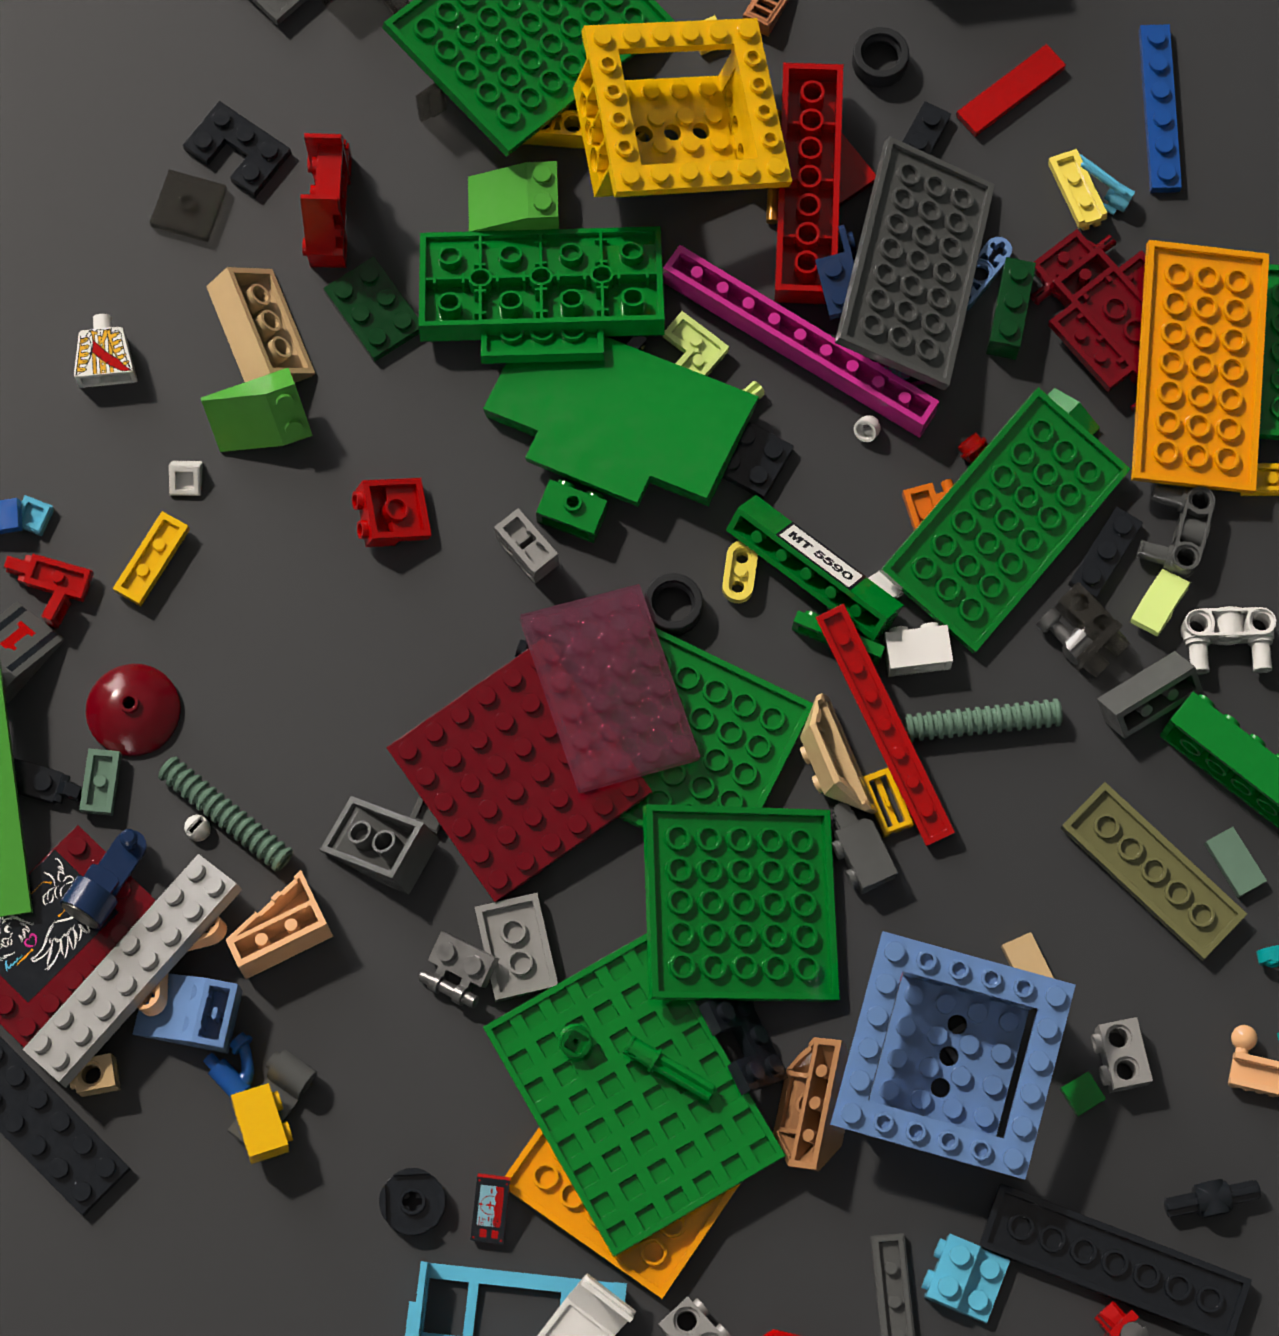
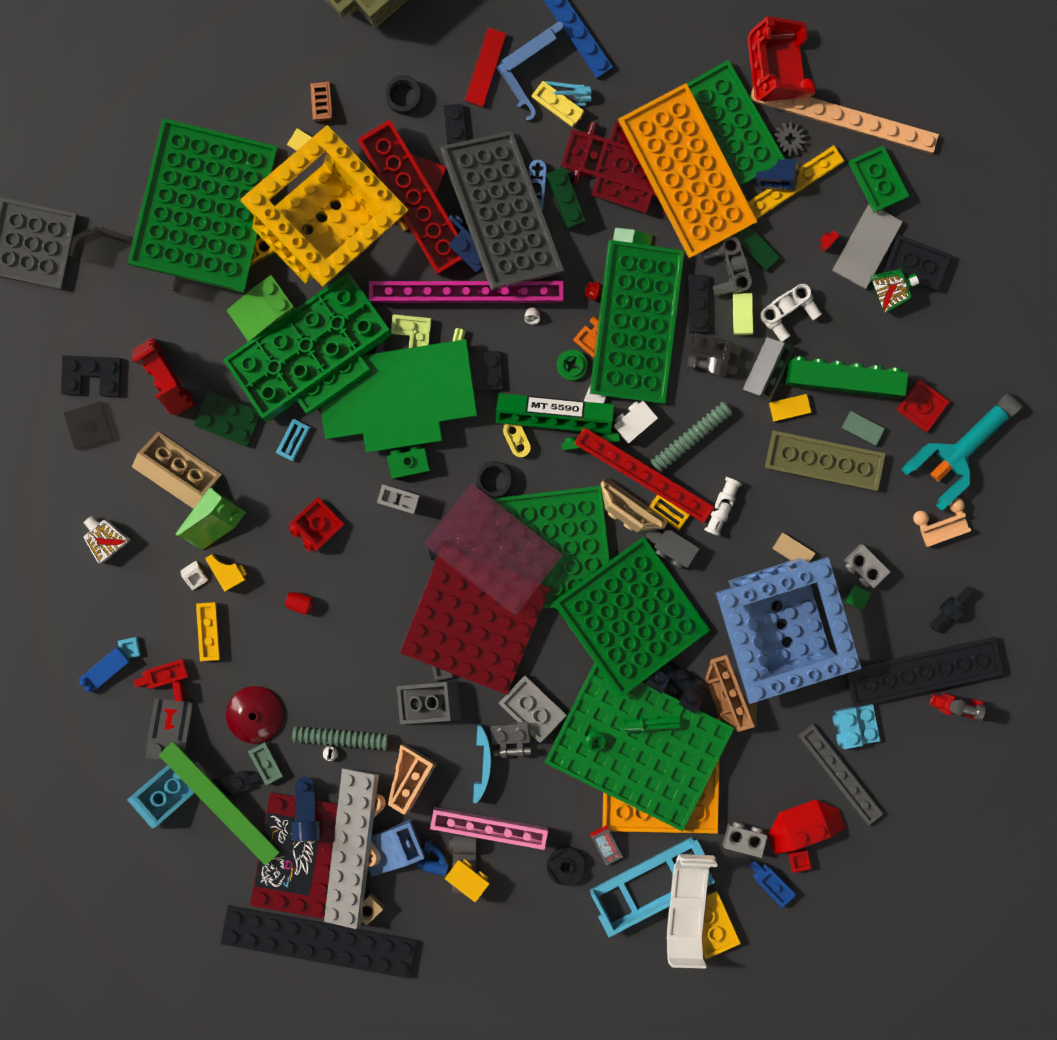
camera: 30 degrees left, 15 degrees up
(231, 502) = (226, 574): none -> yellow arch
(298, 598) = (299, 603): none -> red brick
(342, 1070) = (489, 828): none -> bright pink brick
(368, 1008) = (482, 740): none -> medium azure slope
(445, 398) = (300, 442): none -> medium azure tile
(883, 511) = (573, 374): none -> green gear
(967, 843) = (721, 510): none -> white piece
(1072, 100) = (520, 56): none -> medium blue hinge
(1148, 769) = (789, 407): none -> yellow tile
(1233, 529) = (756, 247): none -> dark green tile

